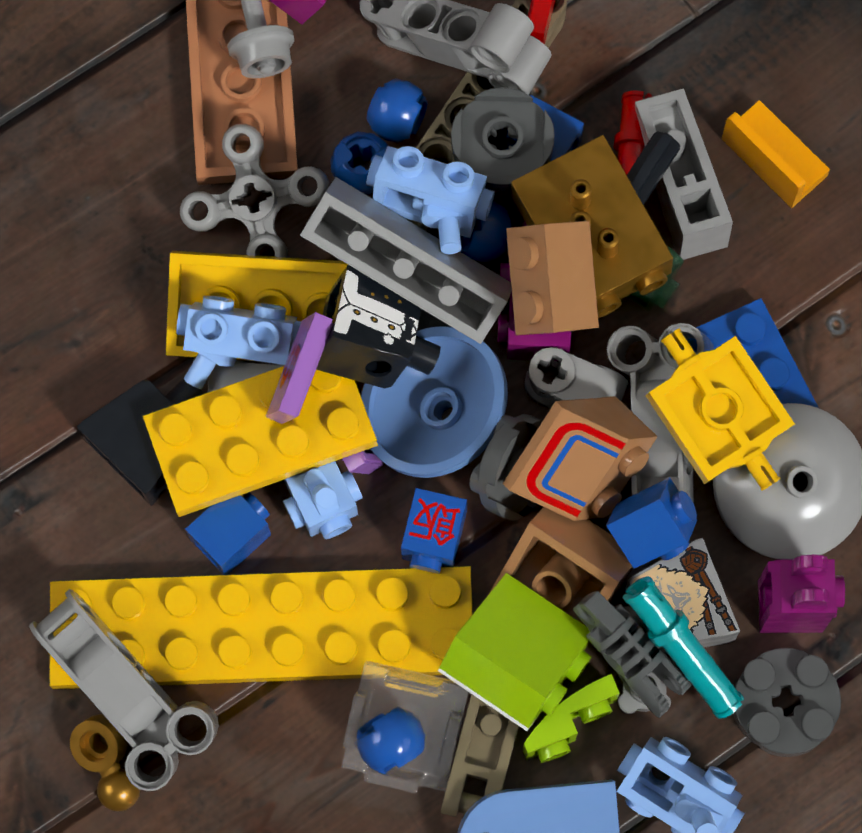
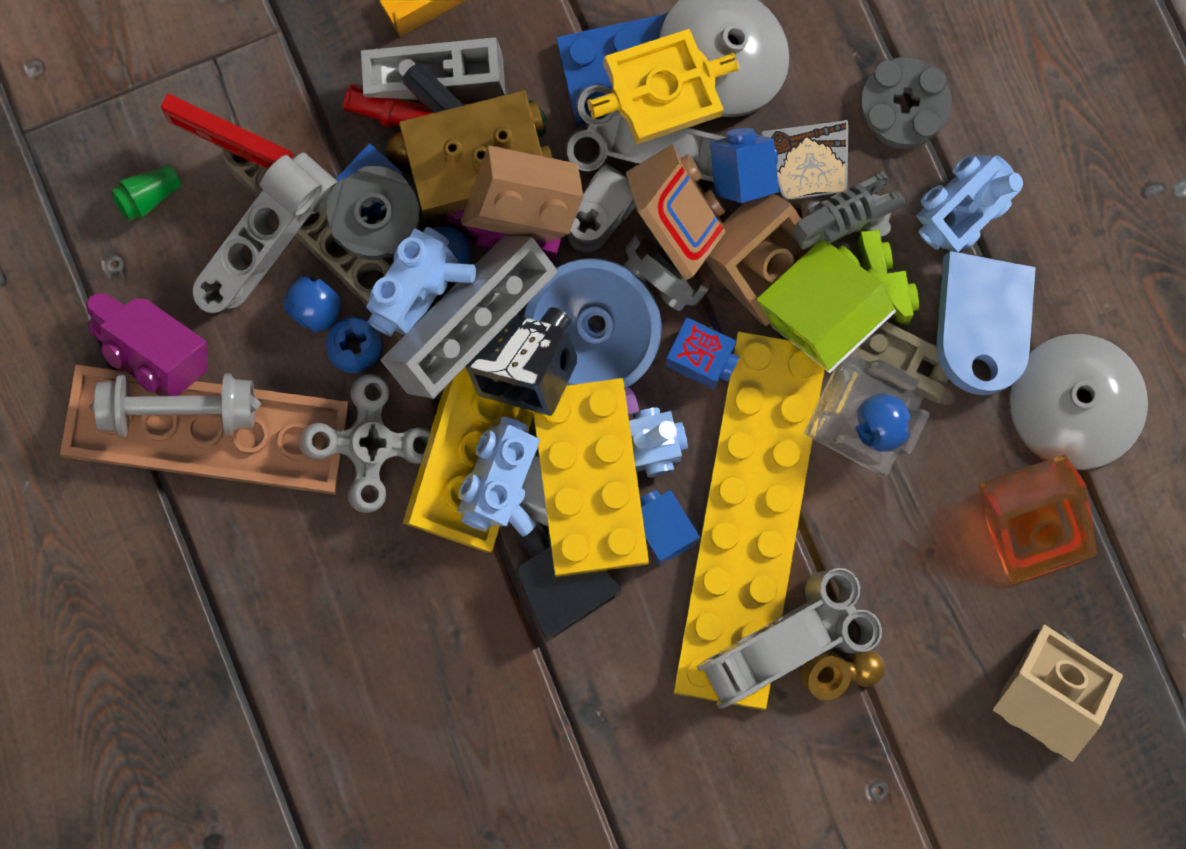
camera: 80 degrees left, 5 degrees up
(300, 368) = (553, 424): medium lavender tile -> none
(671, 631) = (841, 172): teal pin -> none
(799, 595) = (828, 66): magenta hinge -> none

